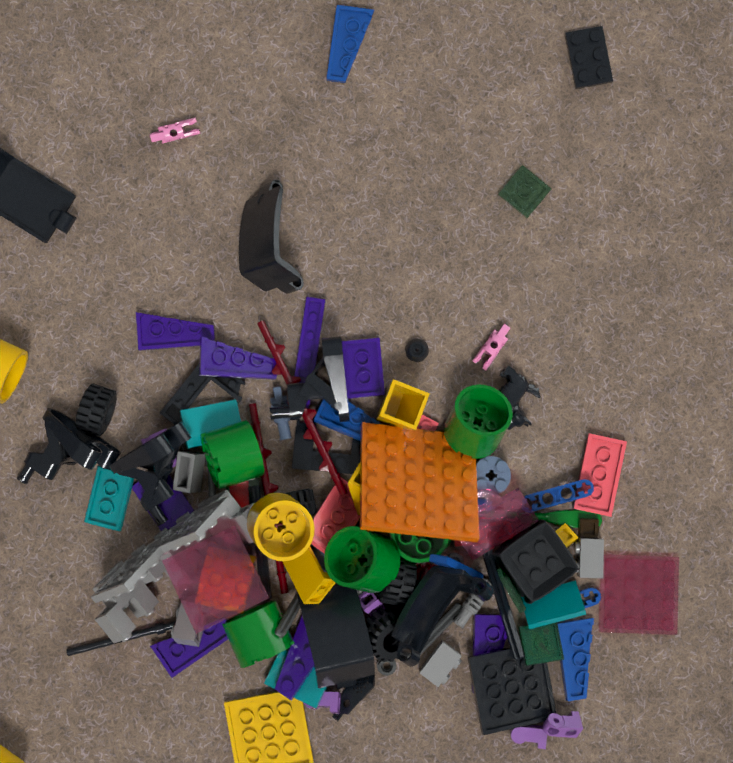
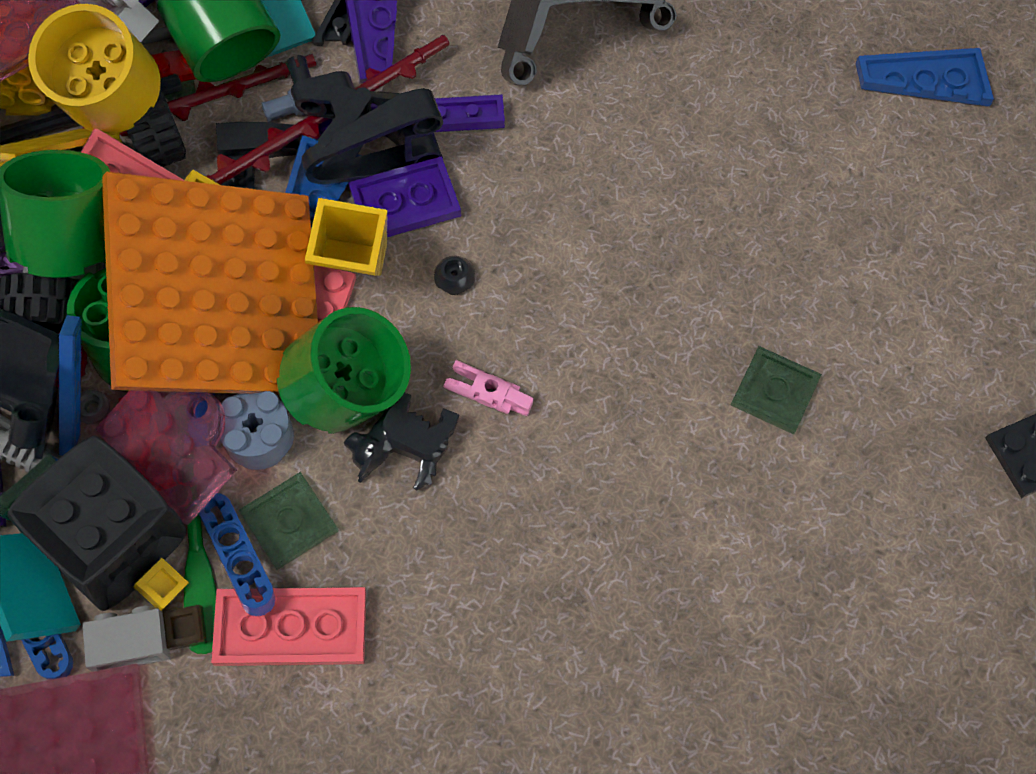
camera: 70 degrees right, 20 degrees down
(541, 466) = (288, 520): none -> clear green tile

